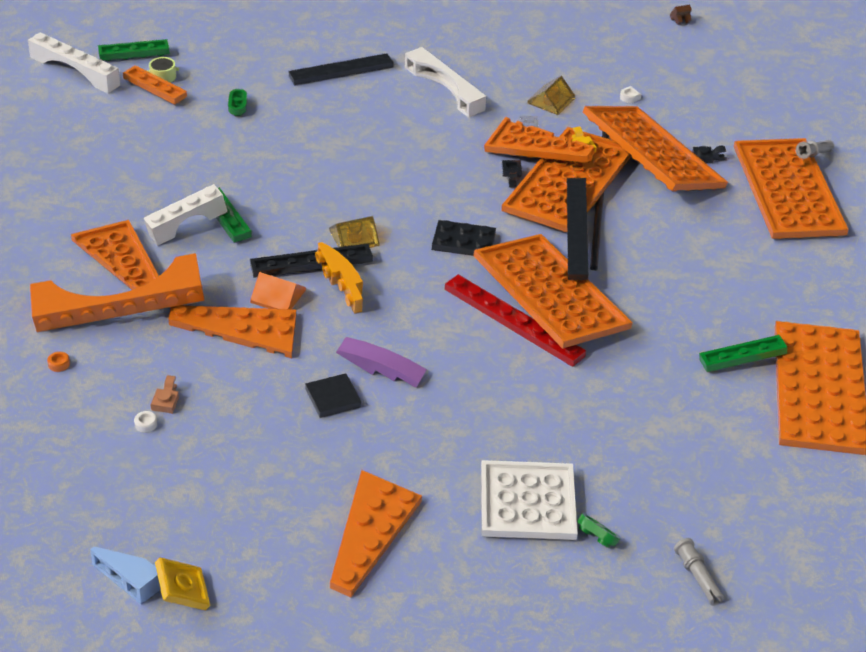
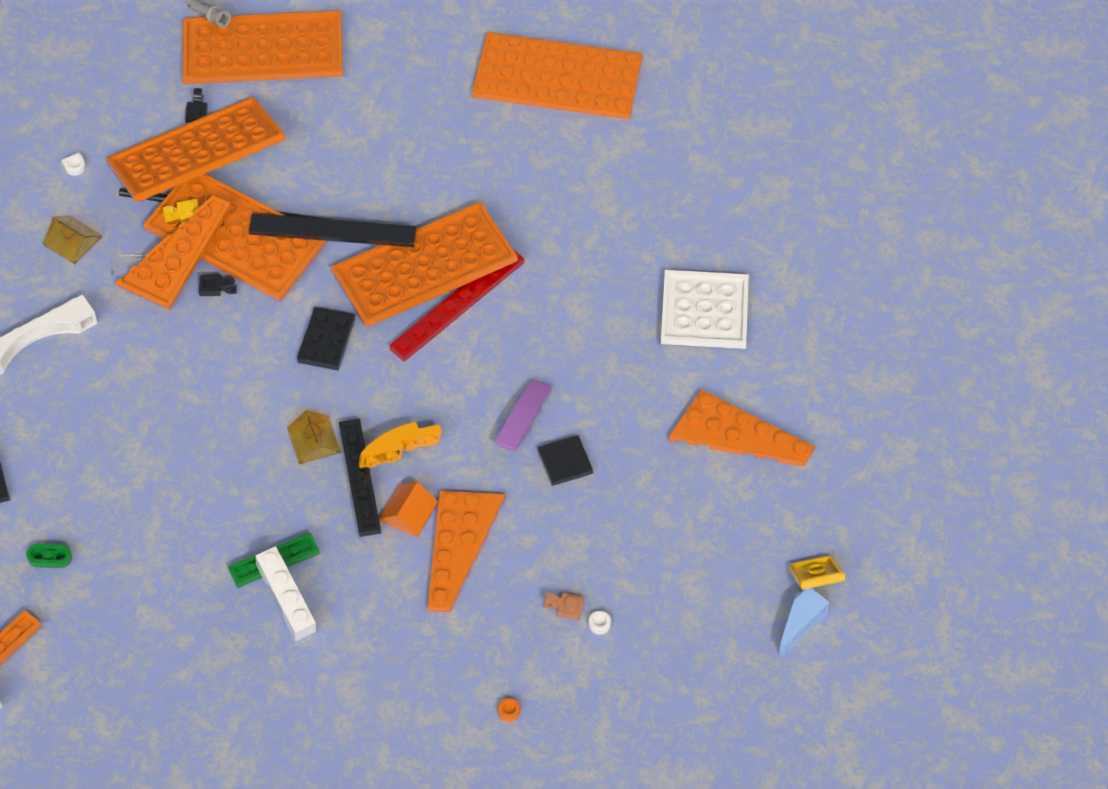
camera: 85 degrees left, 15 degrees up
(59, 308) = (433, 714): orange arch -> none
(118, 251) = (333, 664): orange wing -> none
(590, 525) = (743, 258): green plate -> none
(695, 563) = (775, 197): light grey pin -> none
(743, 353) = (521, 123): green plate -> none

